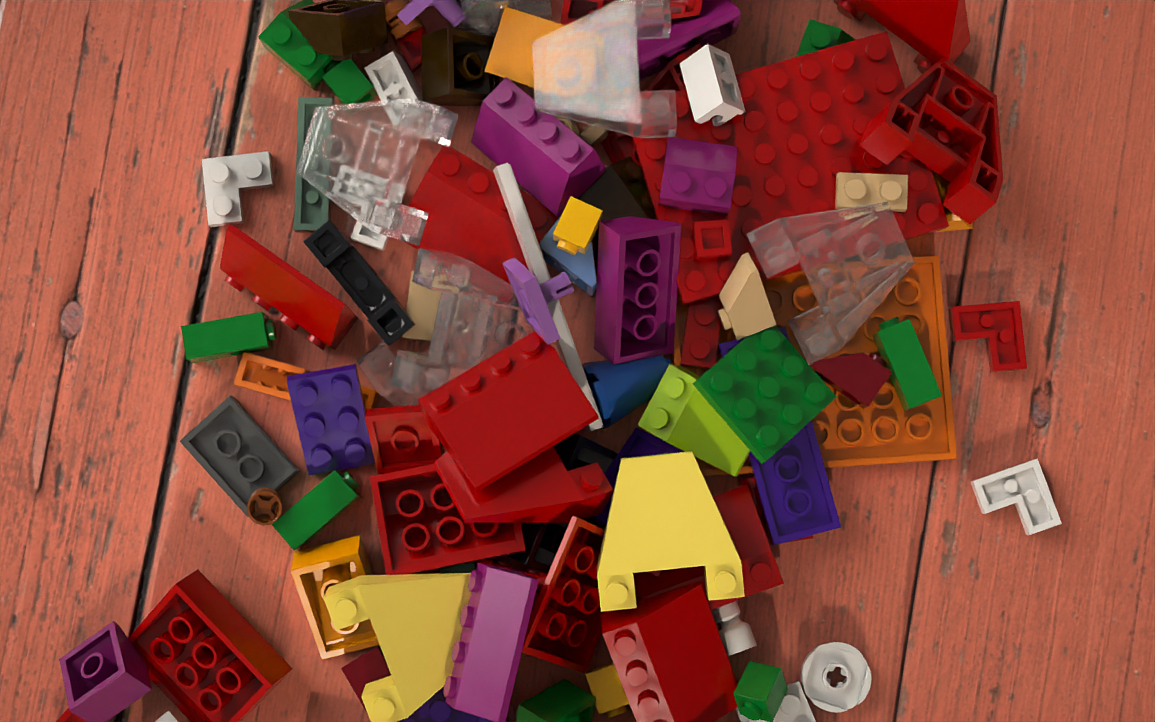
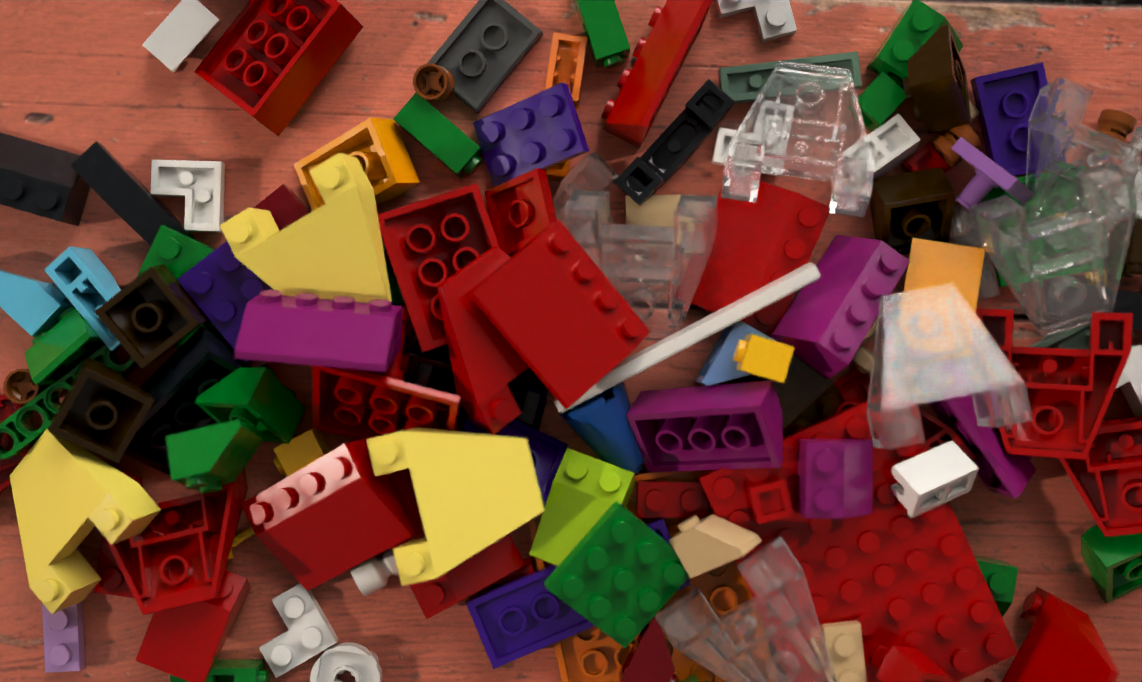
camera: 80 degrees right, 5 degrees up
(535, 297) = (682, 324): medium lavender tile -> none
(760, 691) = (318, 607): green brick -> none

